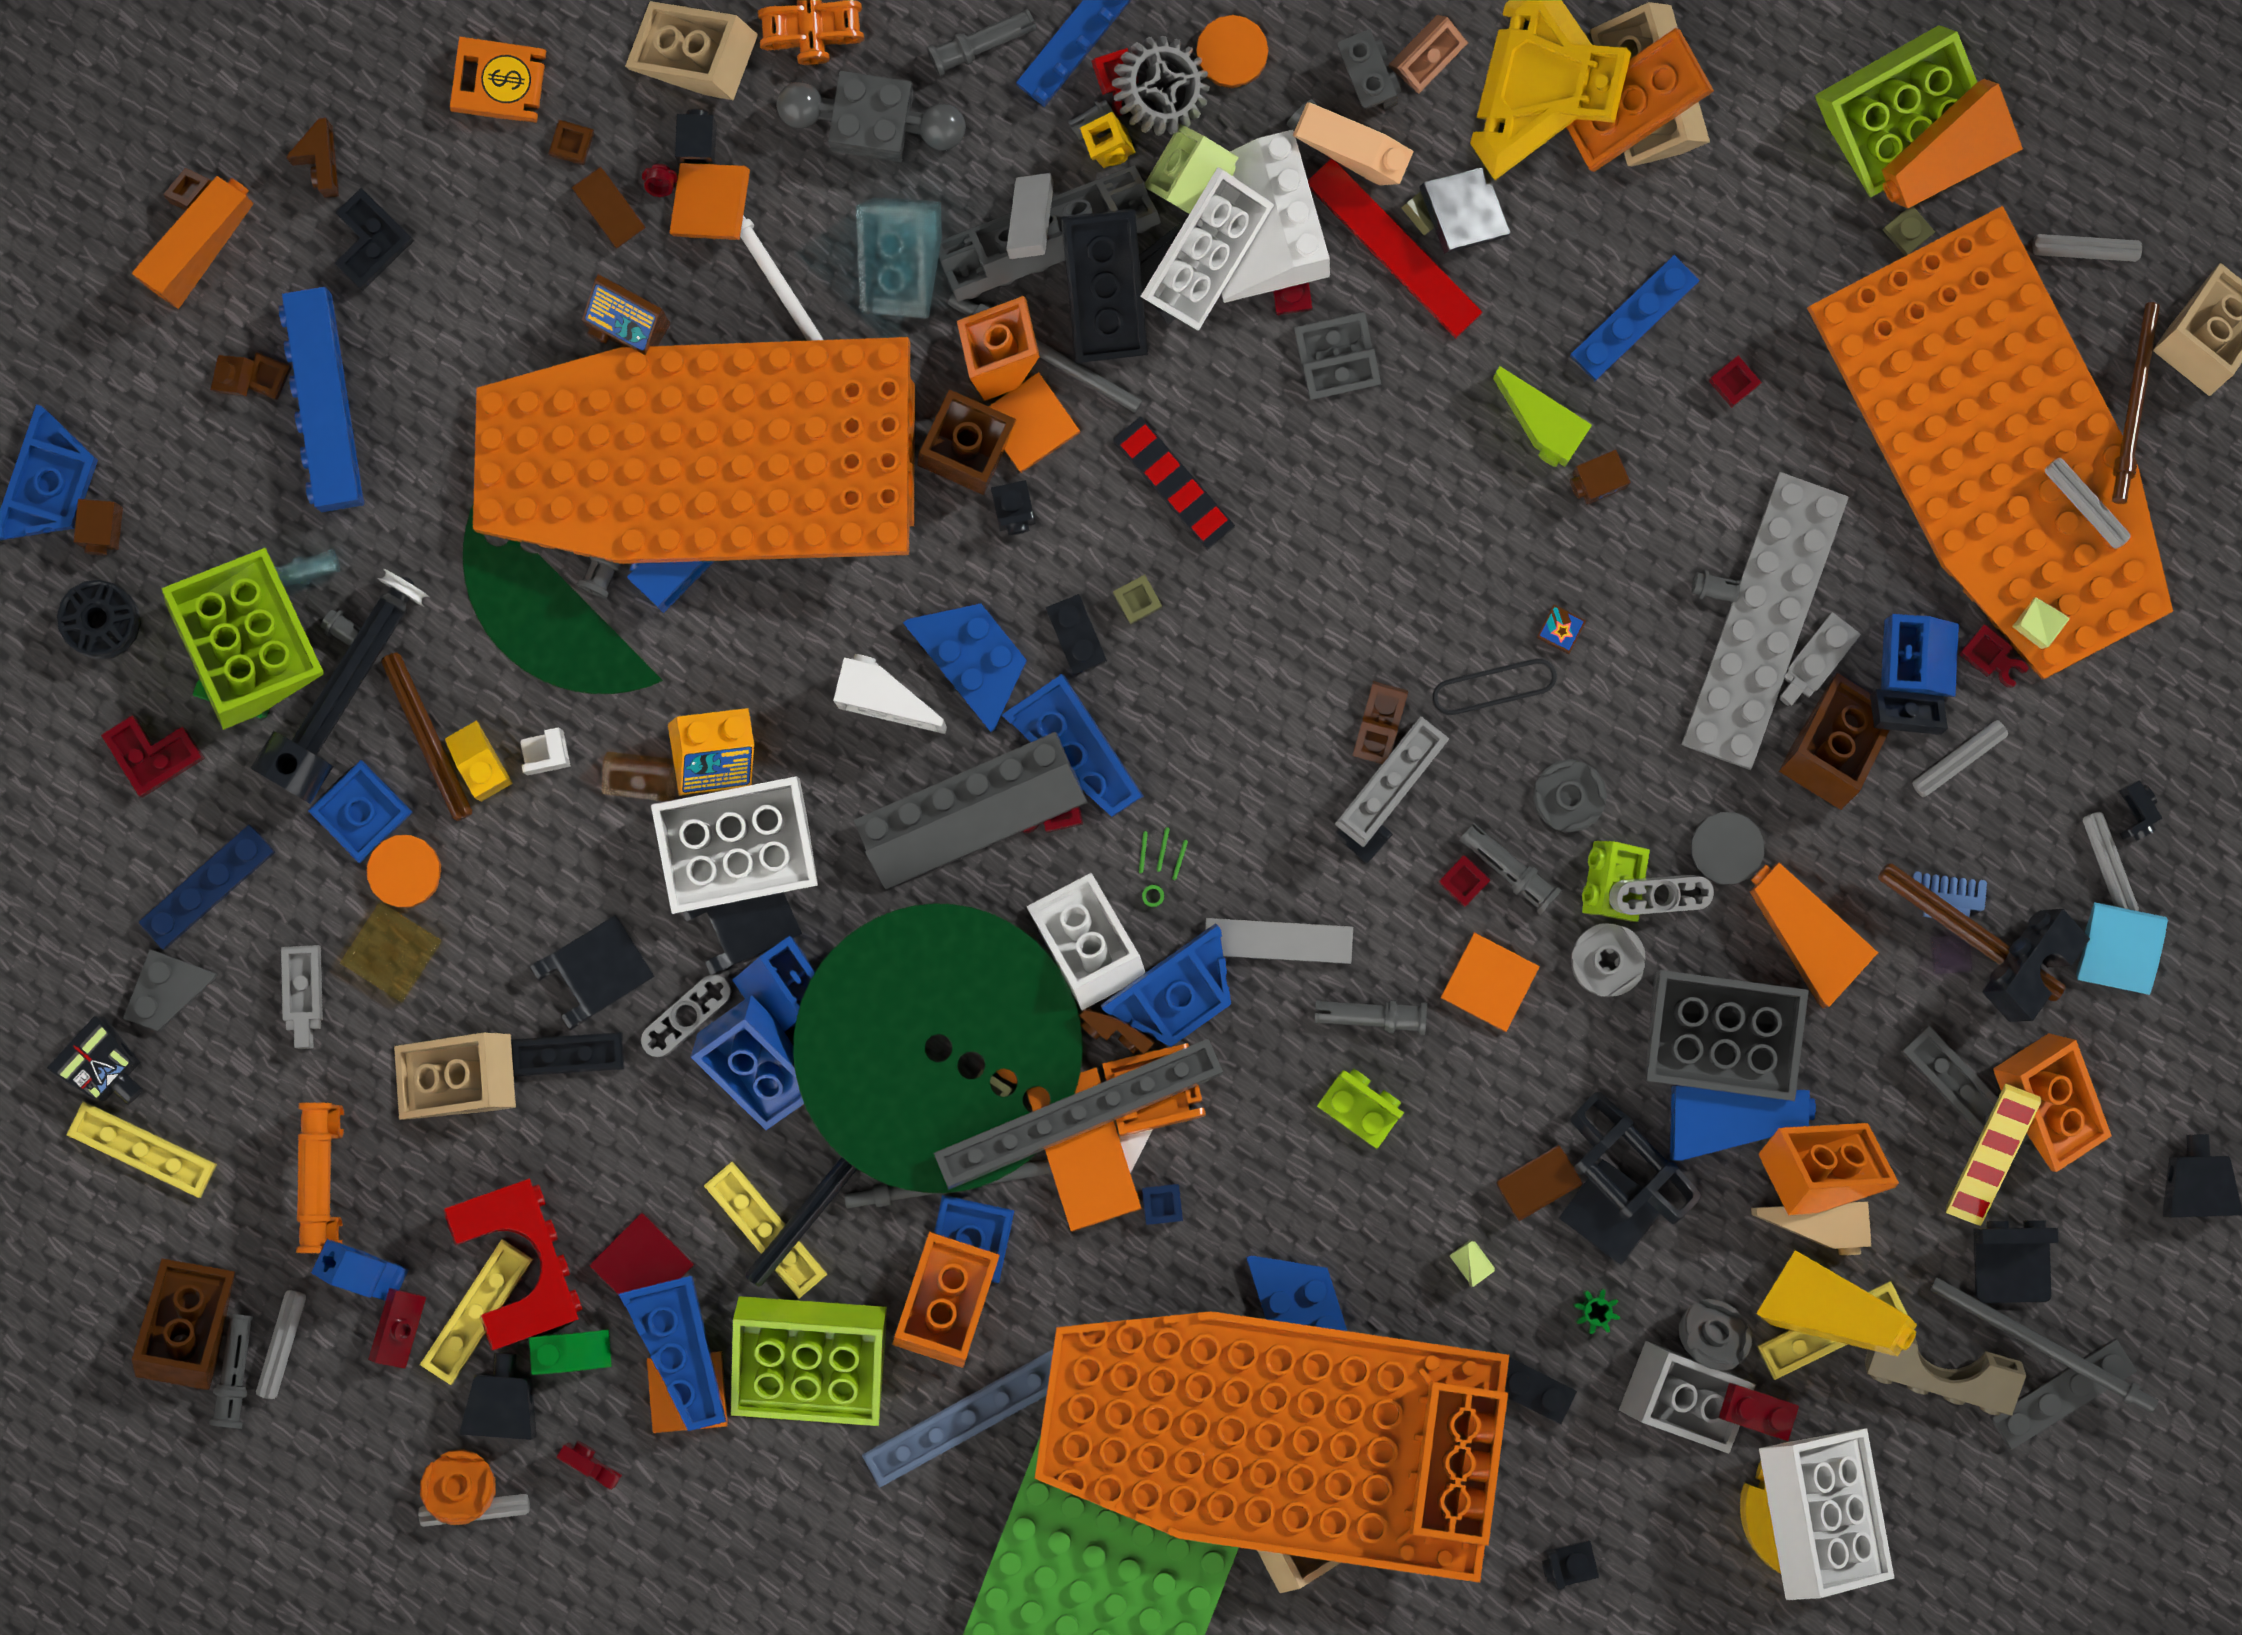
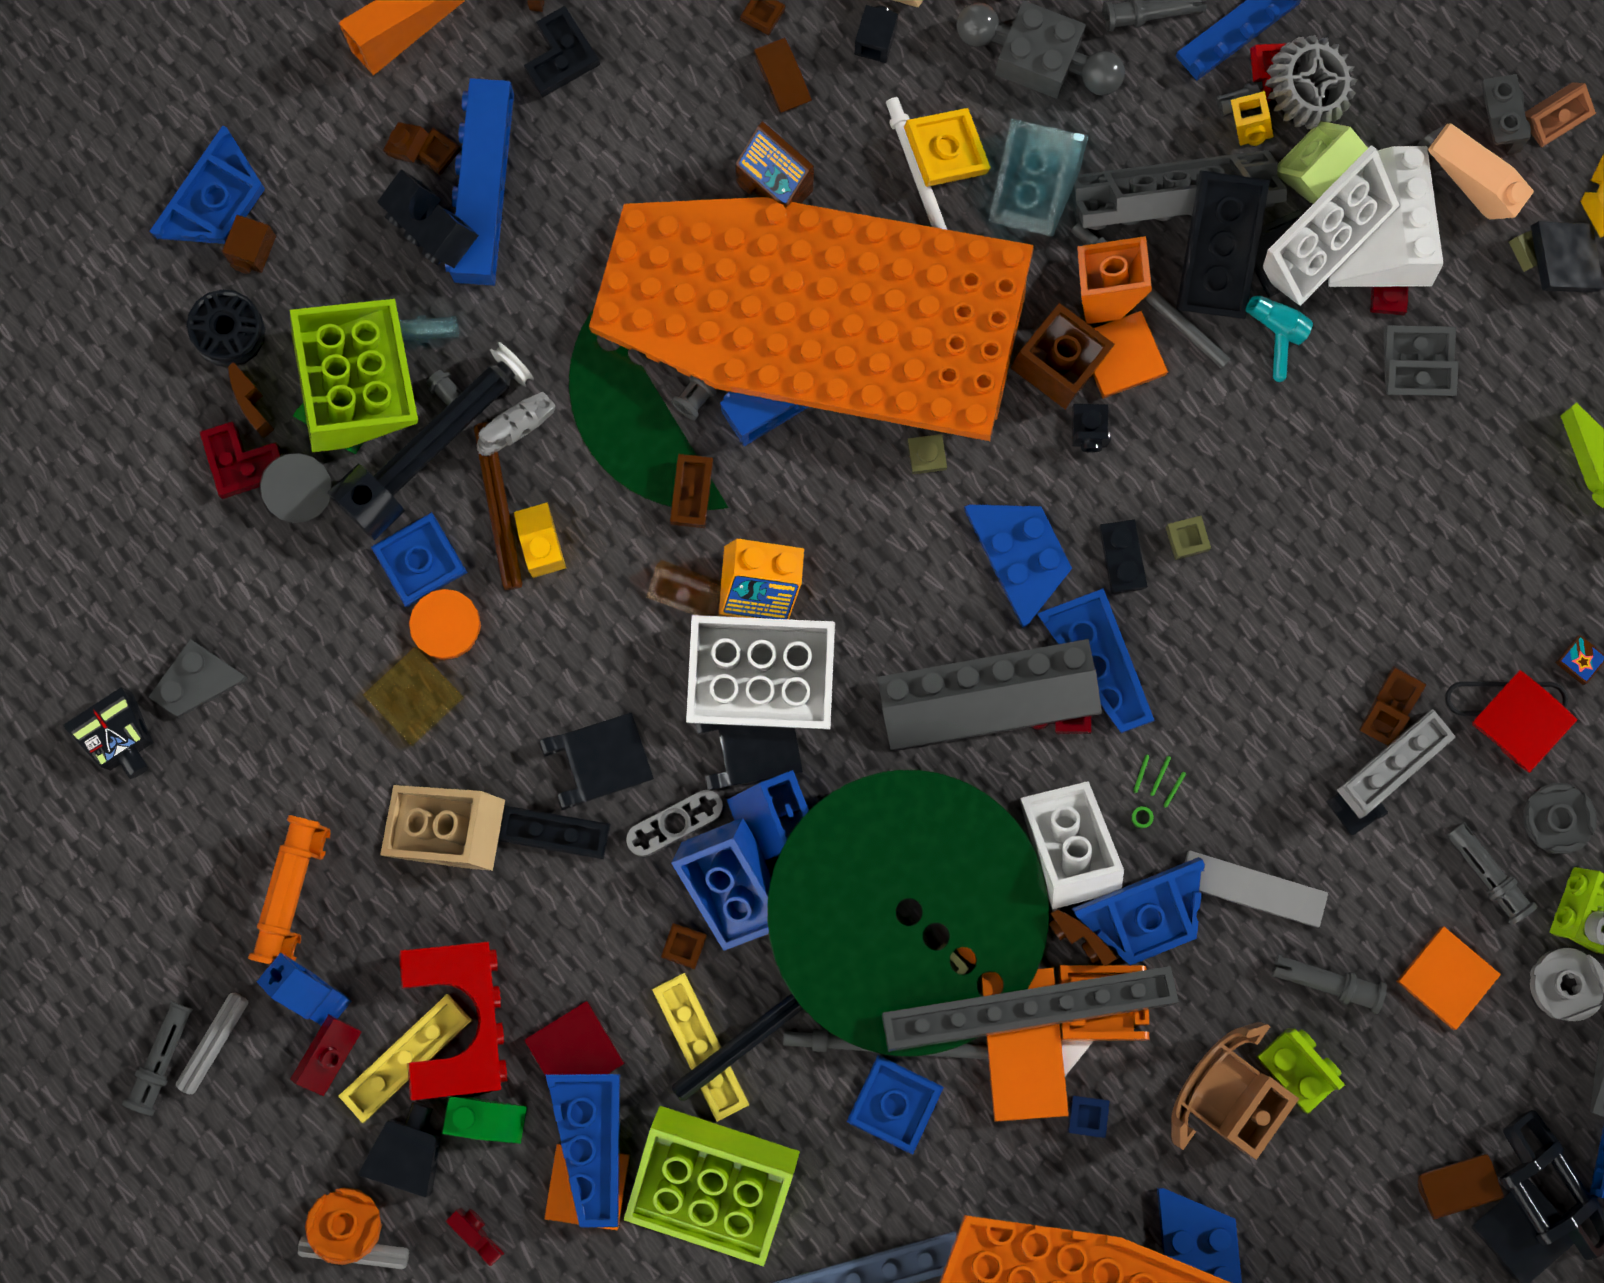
camera: 10 degrees right, 5 degrees down
(138, 683) = (246, 396): none -> reddish brown slope
(141, 1149) = (132, 824): light yellow tile -> none
(183, 1324) = (124, 1001): reddish brown slope -> none
(206, 887) = (258, 595): dark blue plate -> none
(215, 768) = (295, 487): none -> dark grey tile
(255, 447) = (440, 233): none -> black arch
(302, 992) = (320, 713): light grey hinge -> none
(422, 648) = (514, 423): none -> light grey hinge
(545, 752) = (603, 546): white panel -> none
(620, 674) = (691, 491): none -> reddish brown plate
(659, 180) = (834, 69): dark red plate -> none
(709, 201) = (876, 90): orange tile -> none
(725, 1135) = (683, 946): none -> reddish brown tile
(798, 246) = (947, 147): none -> yellow plate
(852, 576) = (927, 454): none -> olive plate
(875, 693) = (930, 566): white slope -> none
(945, 1300) = (859, 1159): orange slope -> none
(1030, 216) = (1167, 167): light grey tile -> none
(1174, 483) = (1244, 440): tile -> none
(1191, 352) = (1287, 325): none -> teal piece
(1232, 51) = (1381, 70): orange tile -> none
(1296, 1150) = (1232, 1096): none -> medium nougat piece
(1394, 248) = (1495, 280): red tile -> none
(1464, 881) = (1443, 875): dark red plate -> none
(1472, 1262) = (1379, 1249): yellowish green slope -> none
(1514, 706) = (1524, 721): none -> red slope

